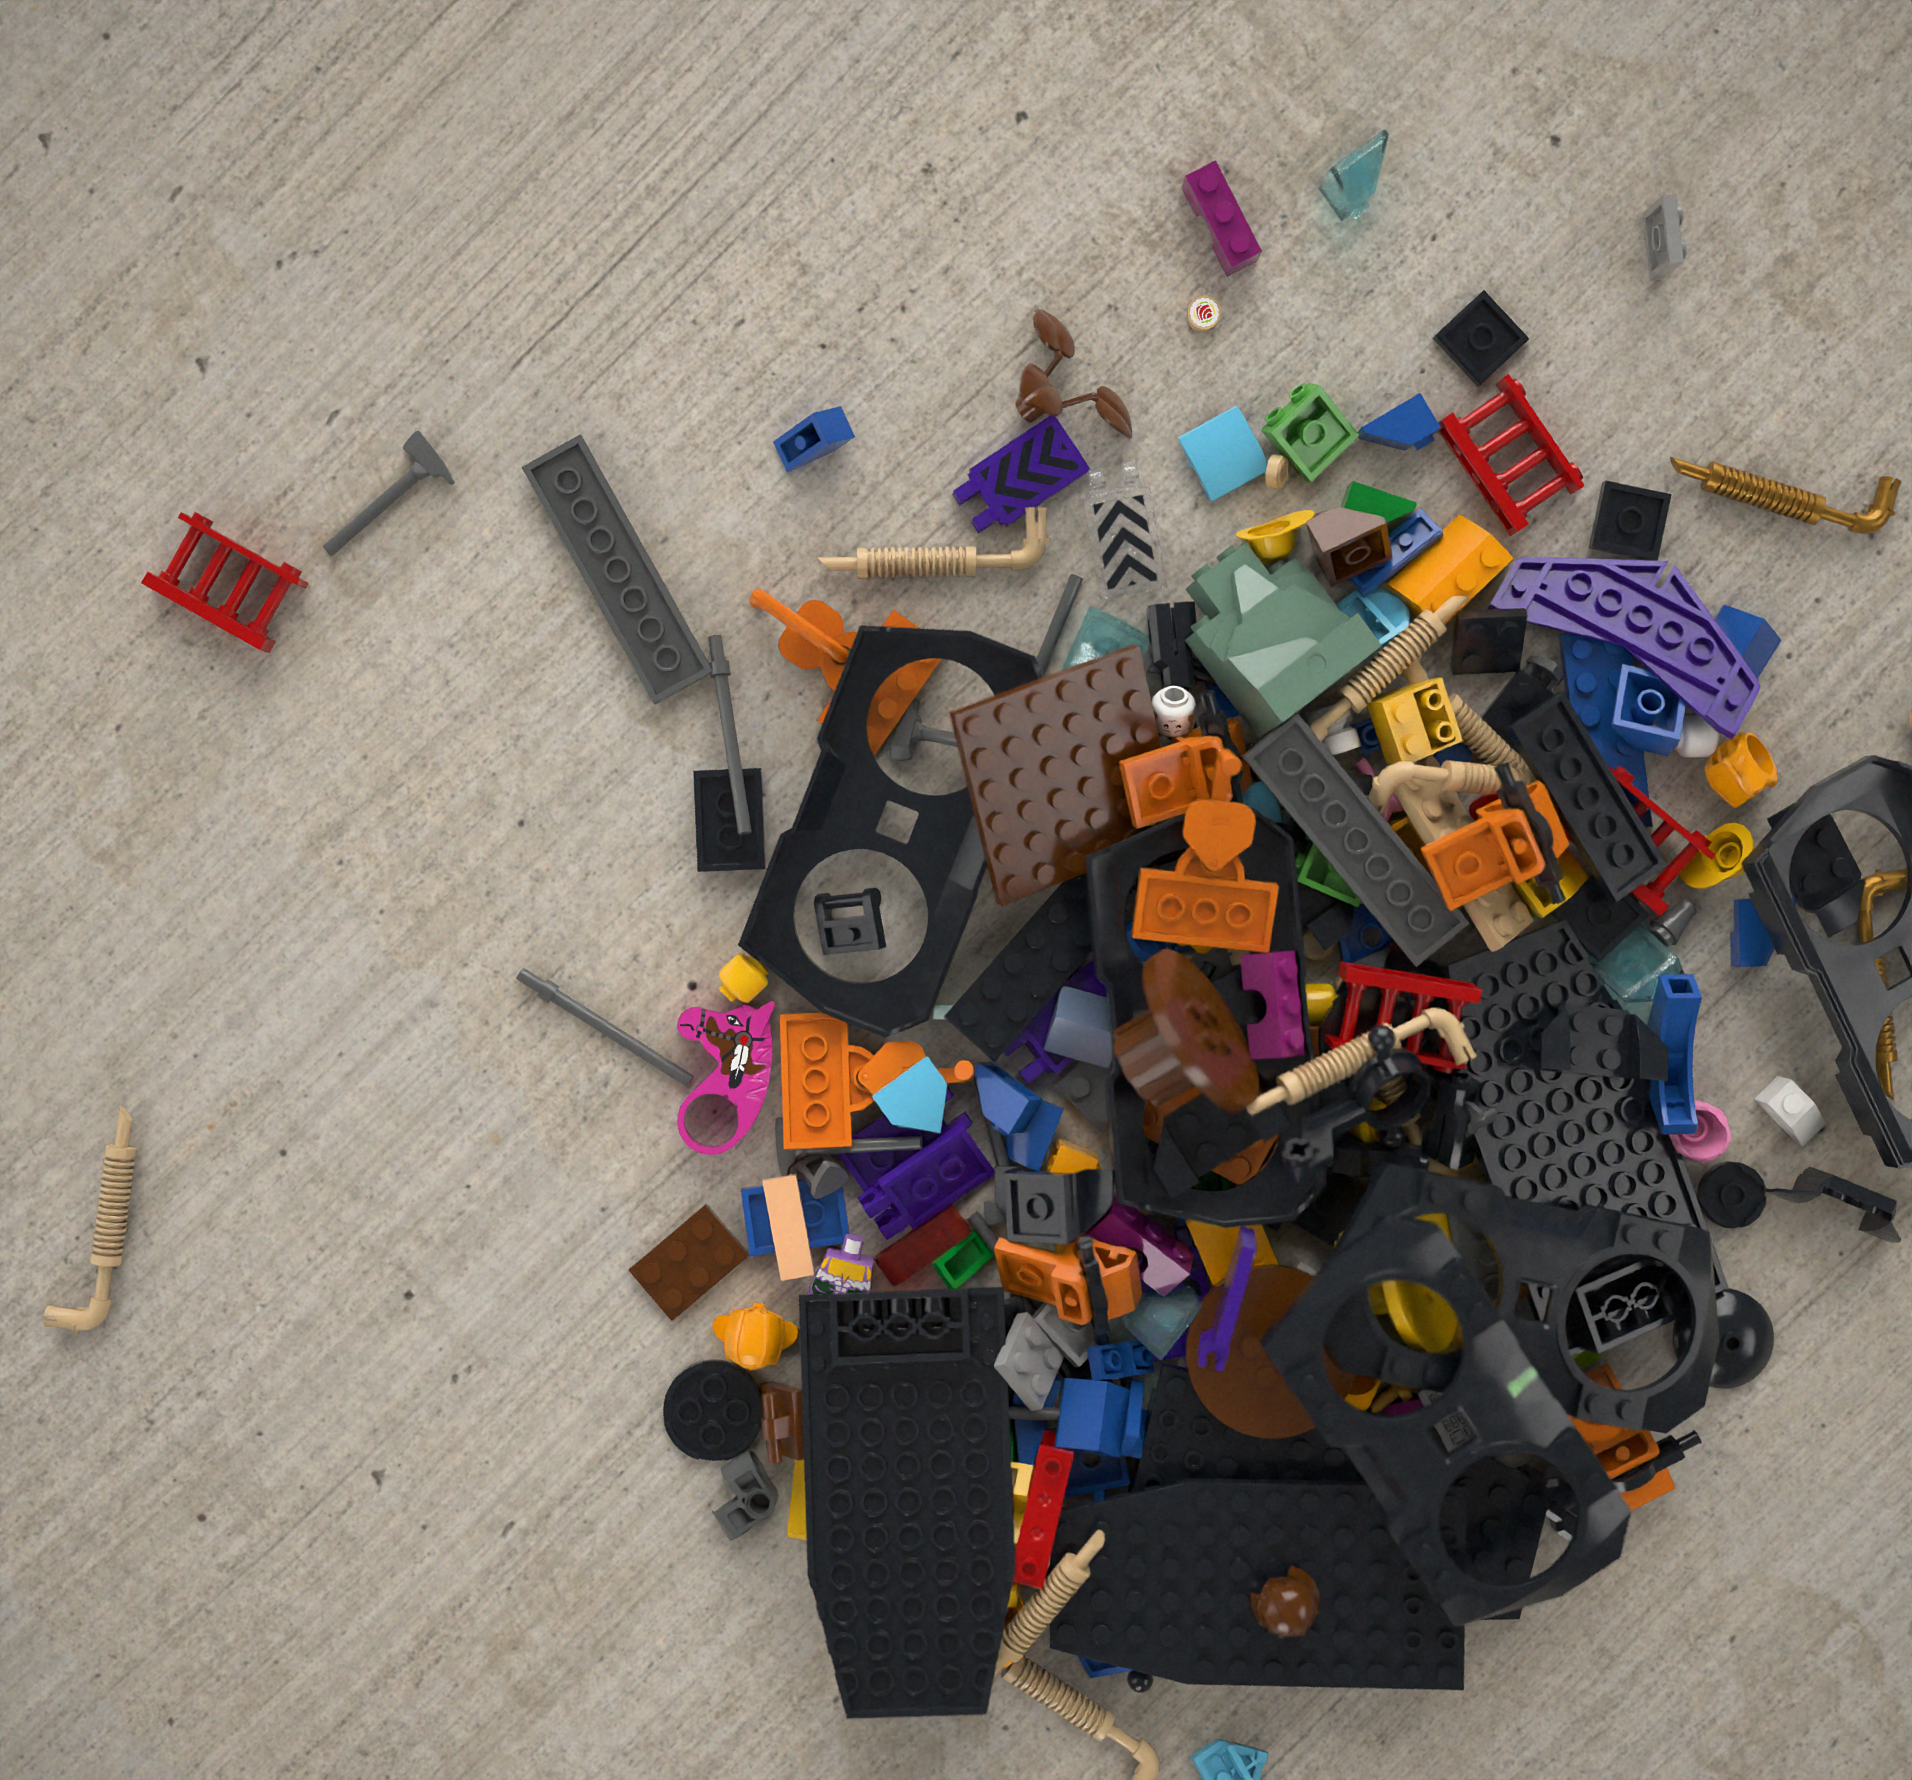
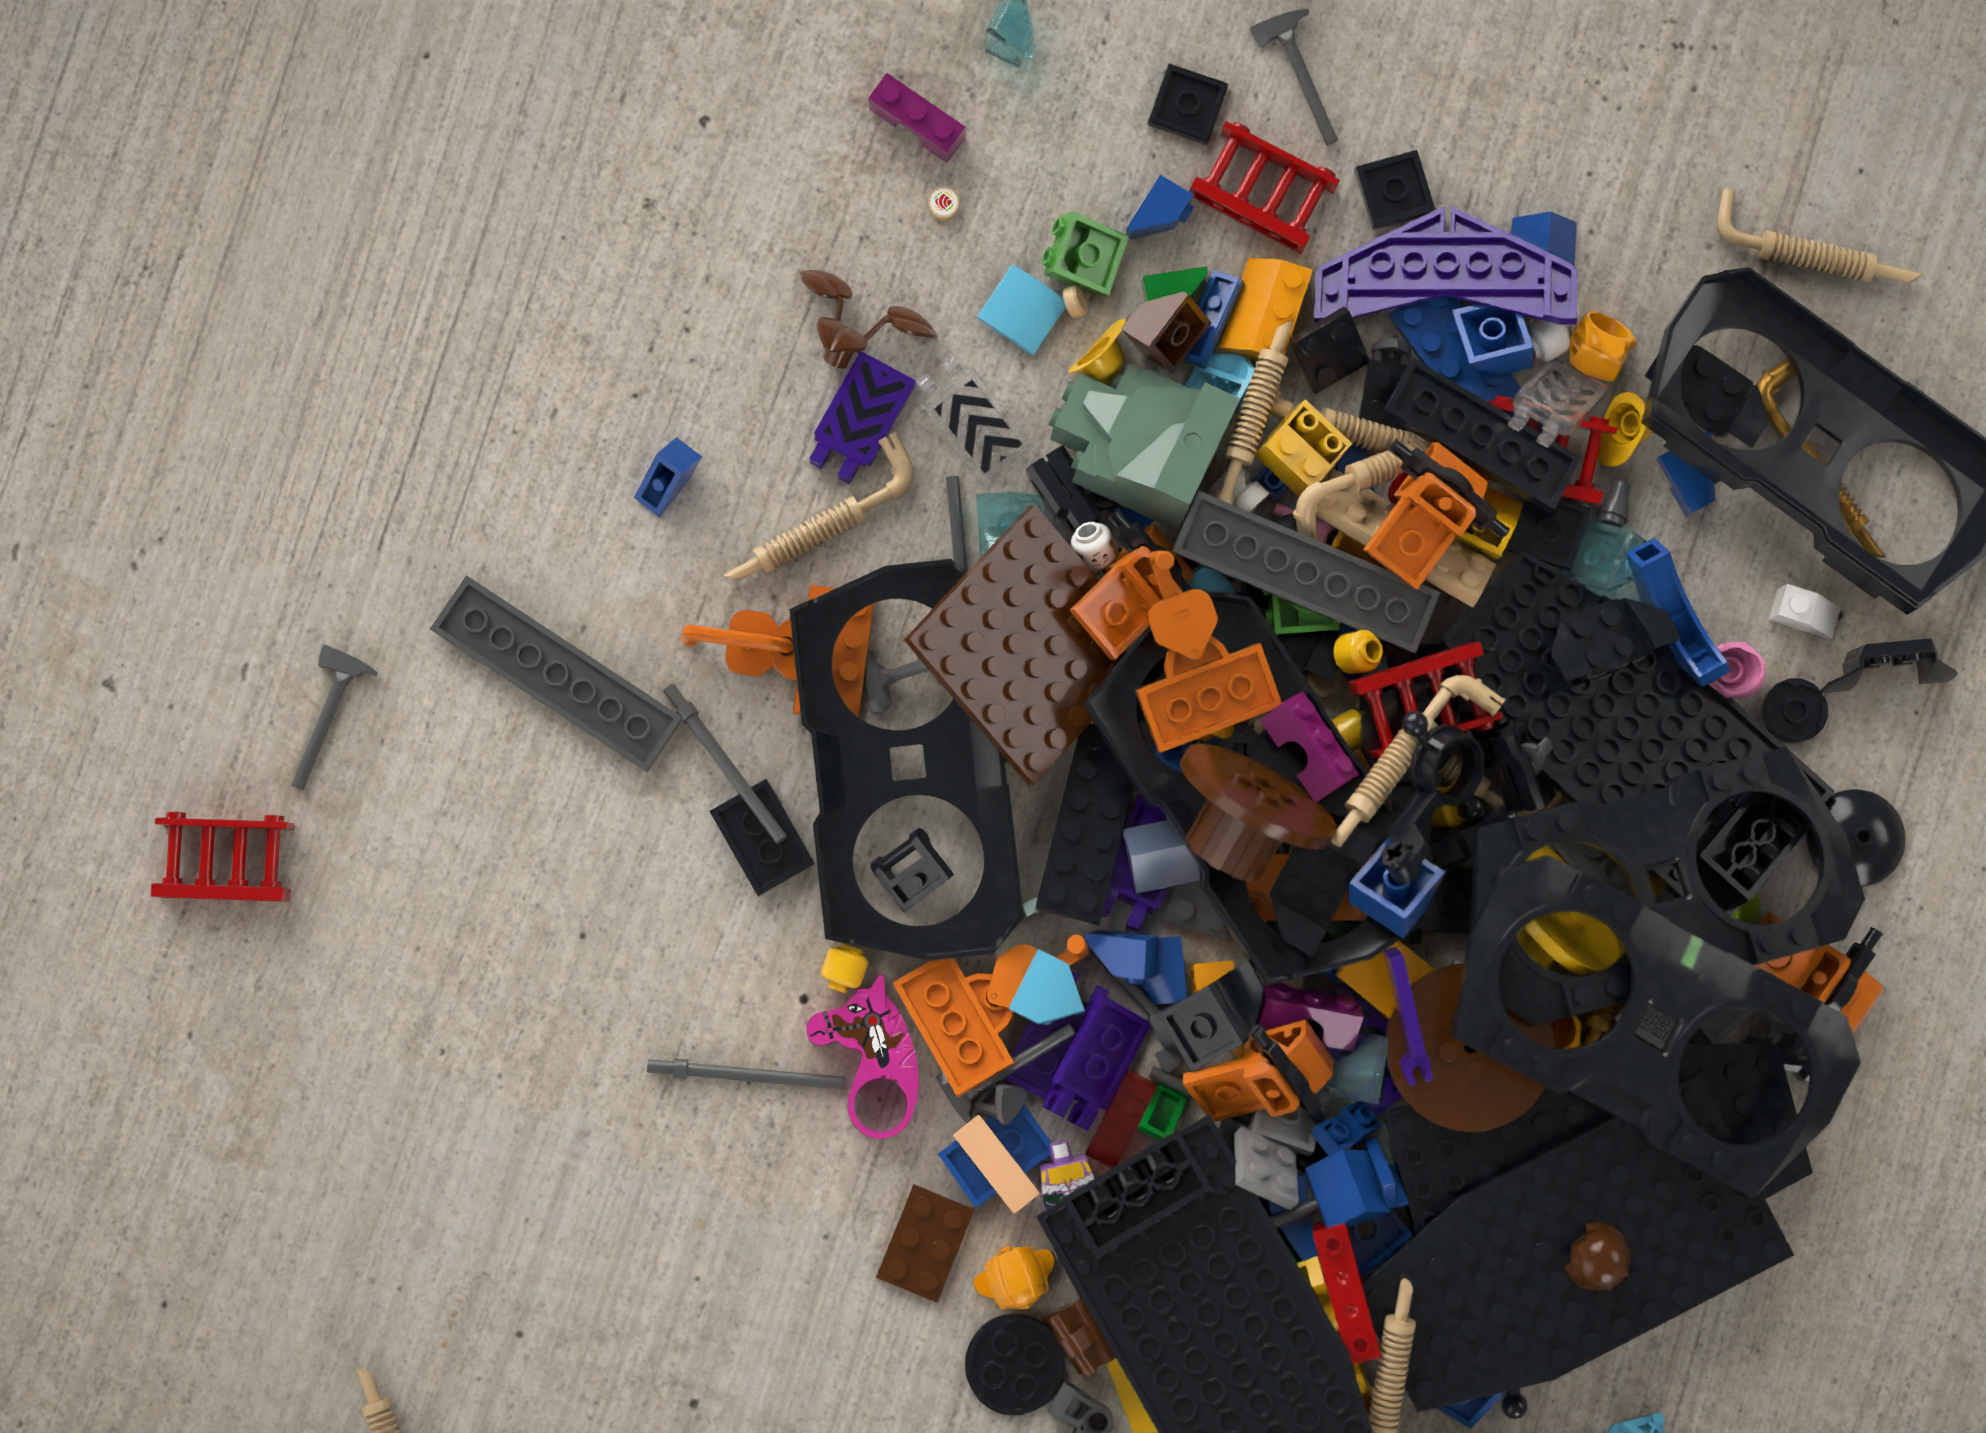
camera: 30 degrees left, 5 degrees down
(1266, 1183) = (1388, 902): none -> blue slope
(1364, 937) = (1358, 652): none -> yellow head
(1607, 312) = (1282, 28): none -> dark grey piece
(1675, 800) = (1557, 399): none -> clear tile
(1788, 499) = (1520, 103): pearl gold piece -> none

